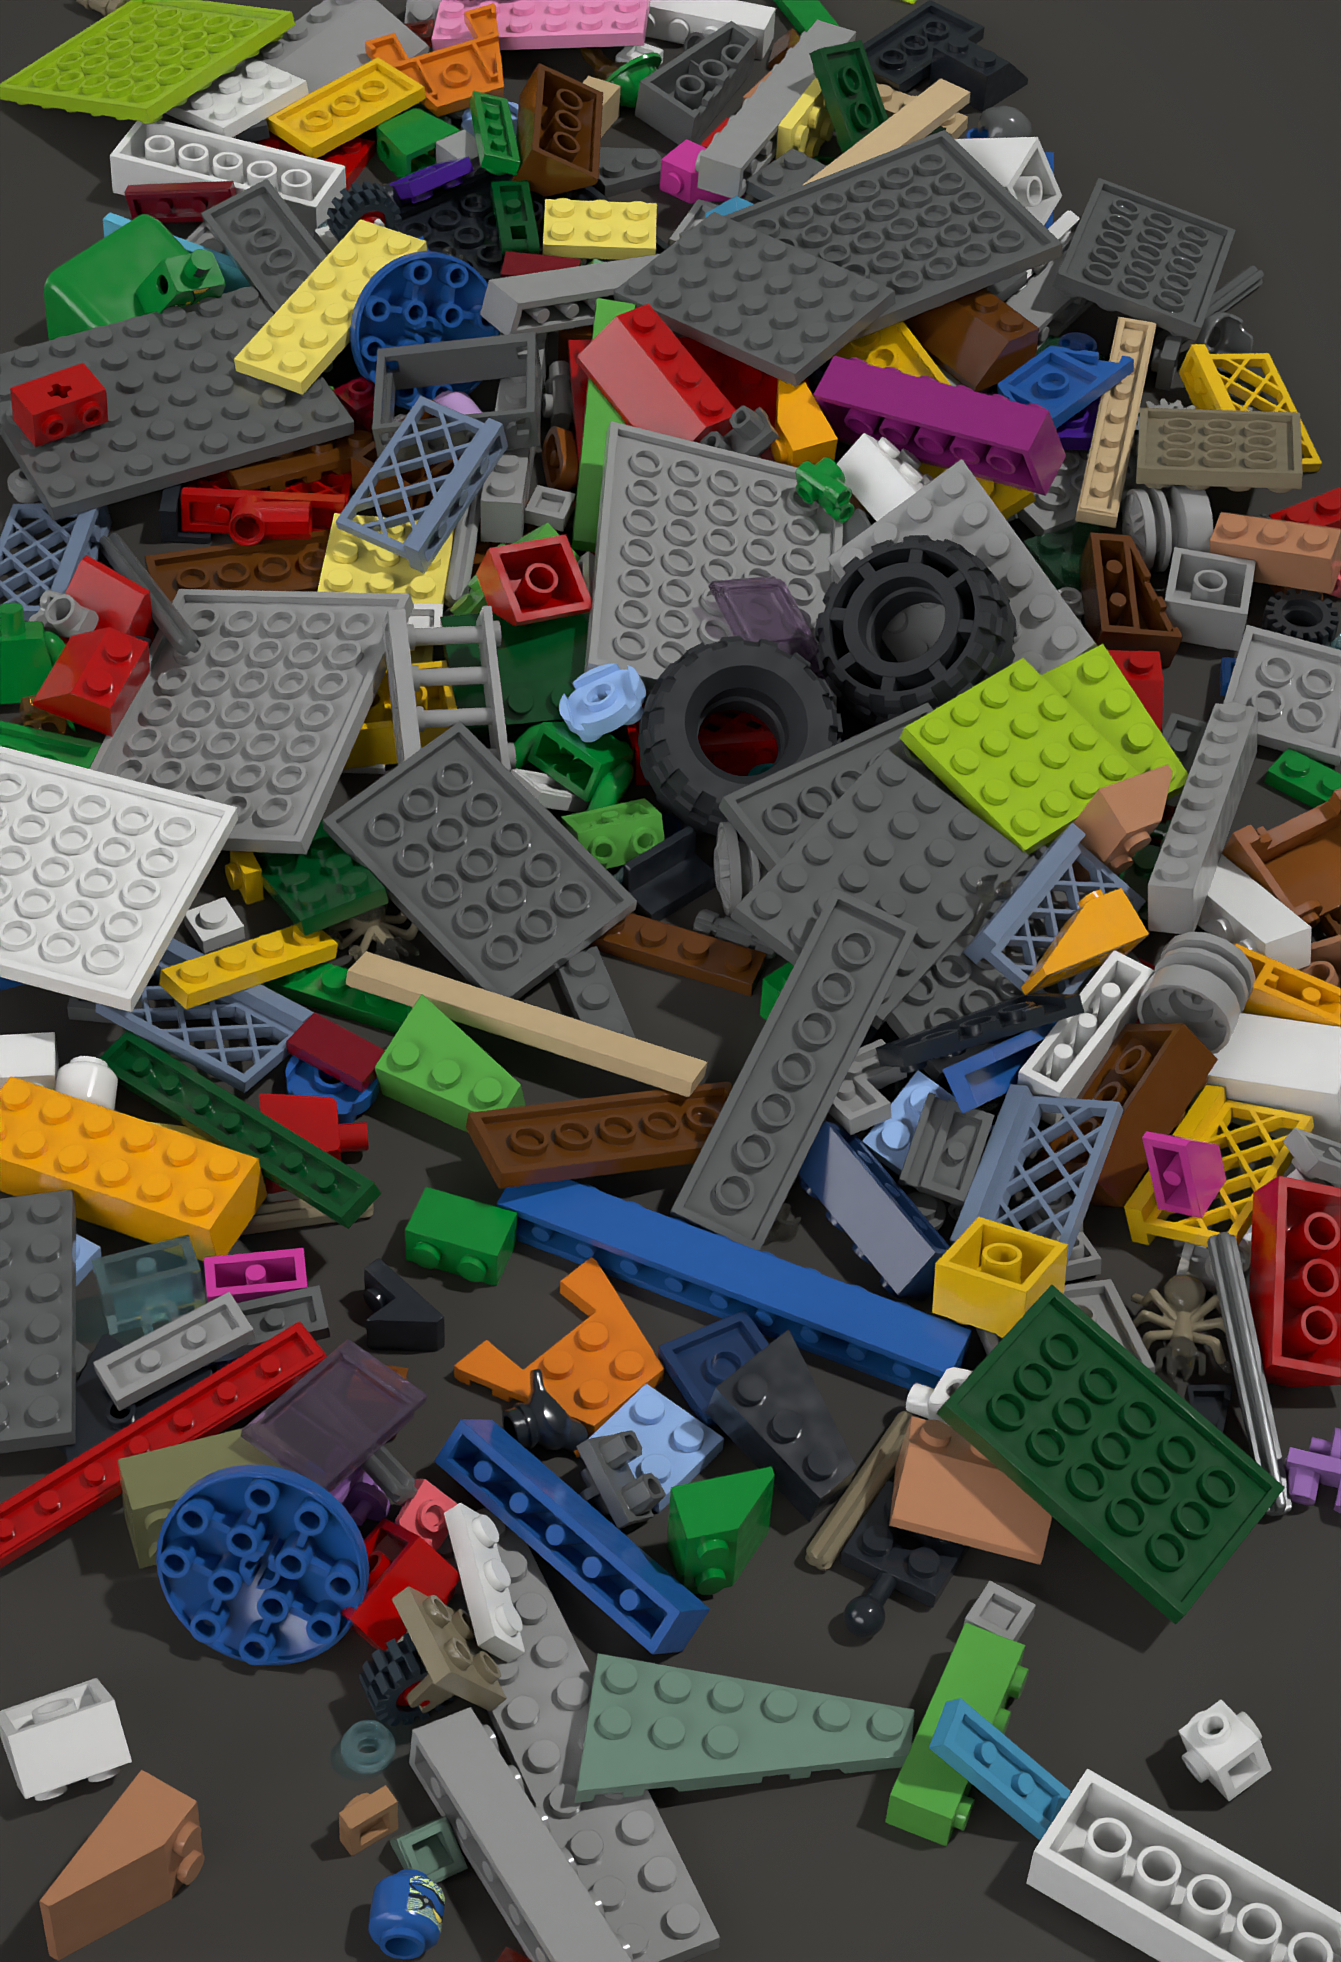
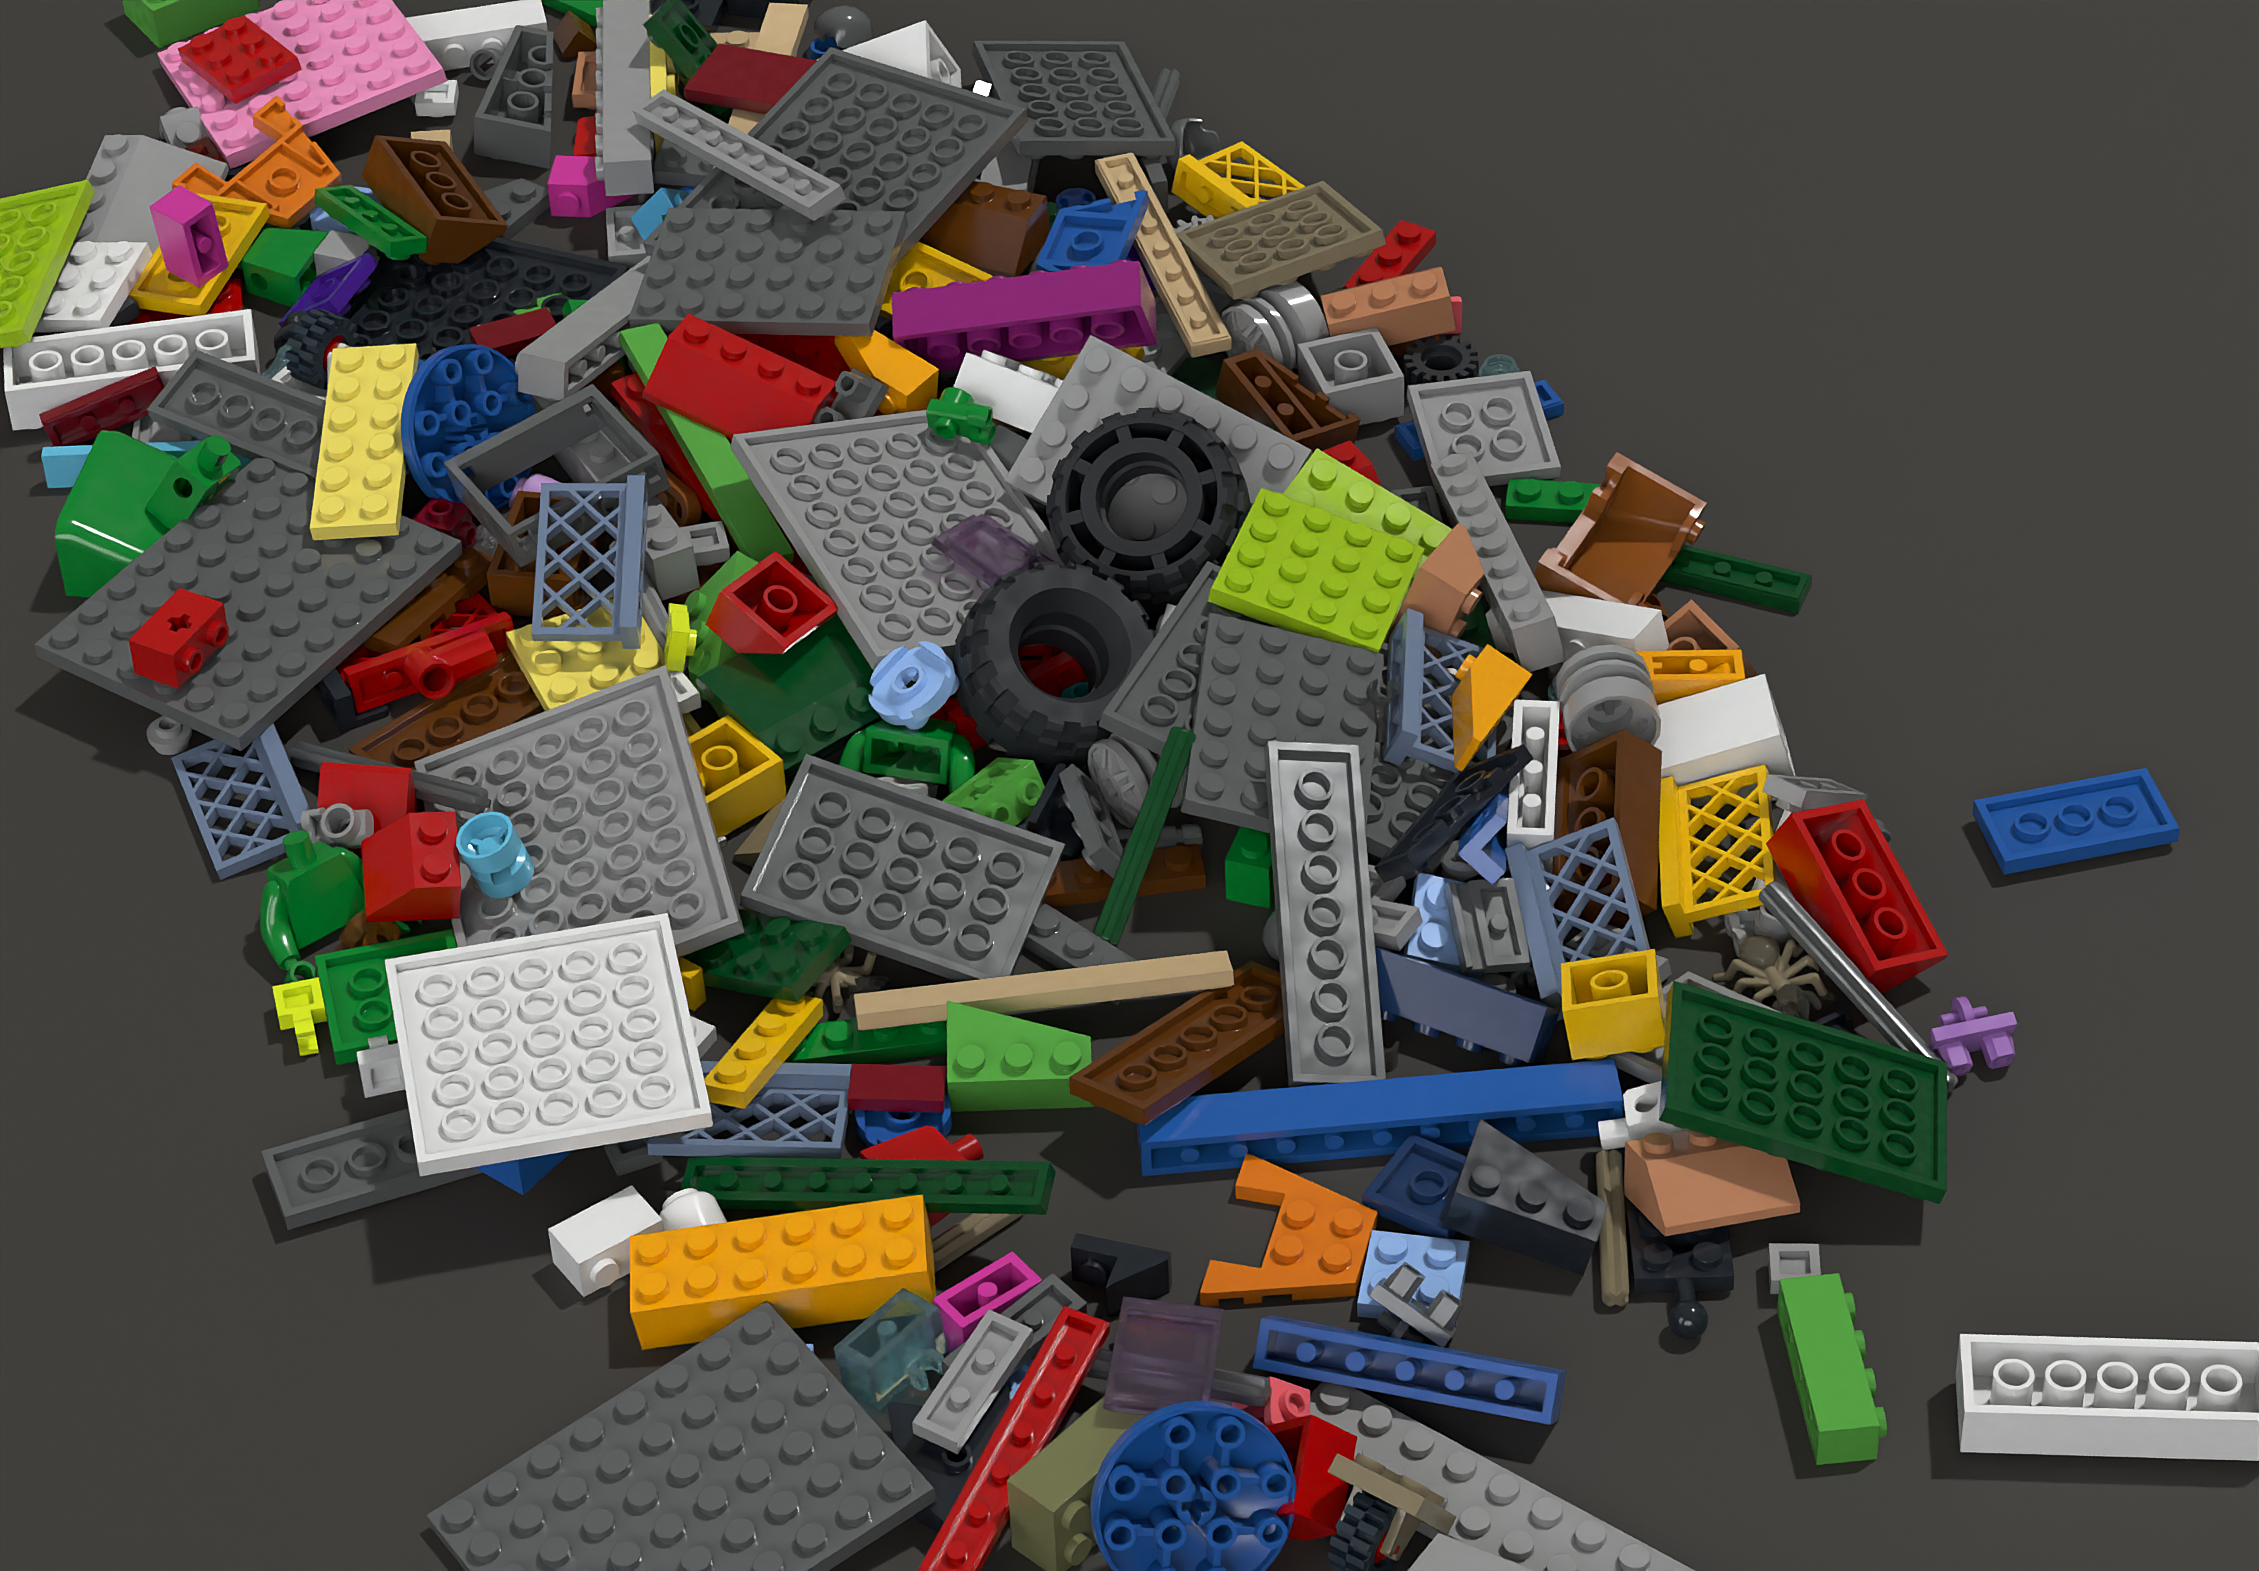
camera: 25 degrees left, 5 degrees down
(160, 694) = (495, 854): none -> medium azure wheel
(330, 86) = (189, 236): none -> dark pink brick
(408, 678) = (722, 740): light grey fence -> none
(455, 575) = (679, 637): none -> neon yellow plate
(461, 1236) = (1123, 1188): green brick -> none
(485, 1582) = (1377, 1432): white plate -> none
(514, 217) = (451, 294): dark green plate -> none
(543, 1421) = (1313, 1295): black animal -> none
(599, 229) = (538, 273): light yellow plate -> none
(622, 73) = (450, 114): green piece -> none
(679, 893) = (1091, 821): none -> dark grey plate
(700, 925) = (1144, 835): none -> dark green axle
(713, 1730) = (1638, 1460): sand green wing -> none
(718, 1528) = (1525, 1305): green slope -> none
(799, 191) = (740, 155): none -> light grey plate
(865, 129) = (745, 78): none -> dark red tile
(998, 1767) = (1890, 1370): dark azure plate -> none
(1184, 1172) = (1699, 854): dark pink slope -> none
(1224, 1749) = (2043, 1276): white brick -> none

